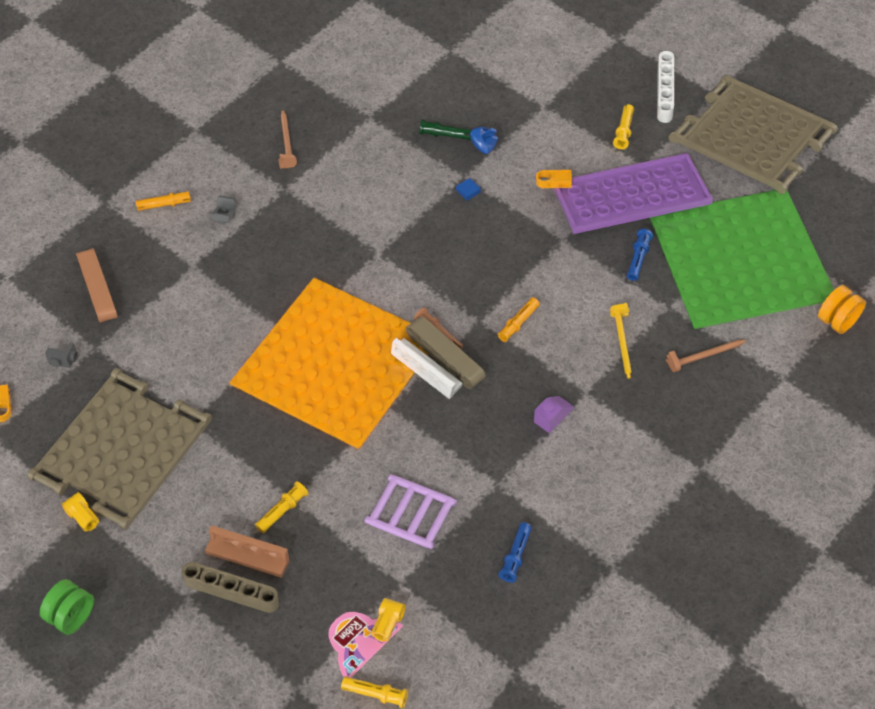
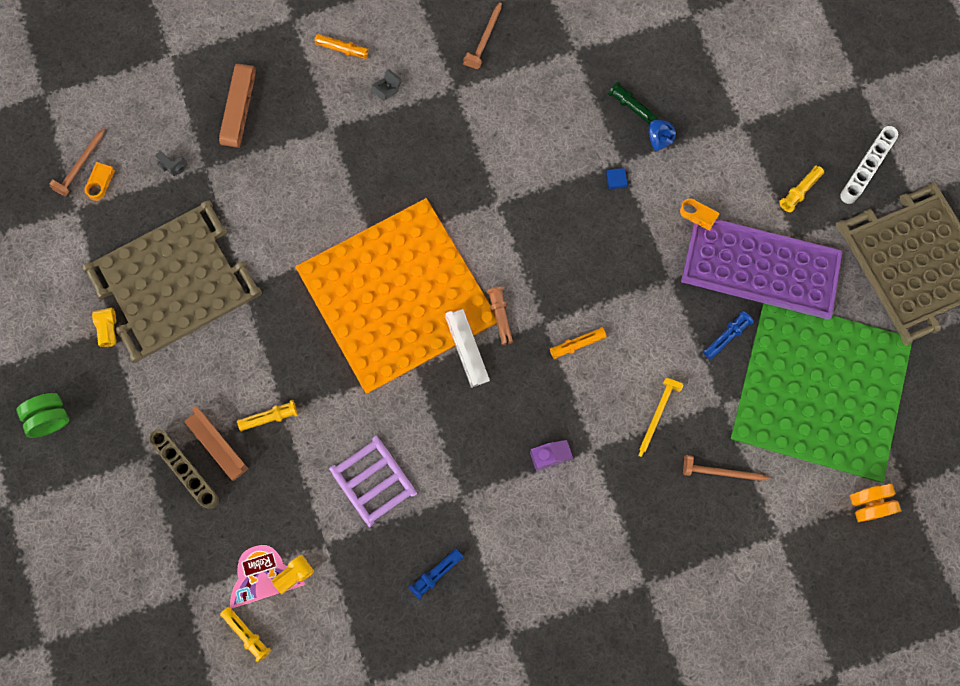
camera: 25 degrees right, 20 degrees up
(445, 352) = (491, 343): dark tan beam -> none

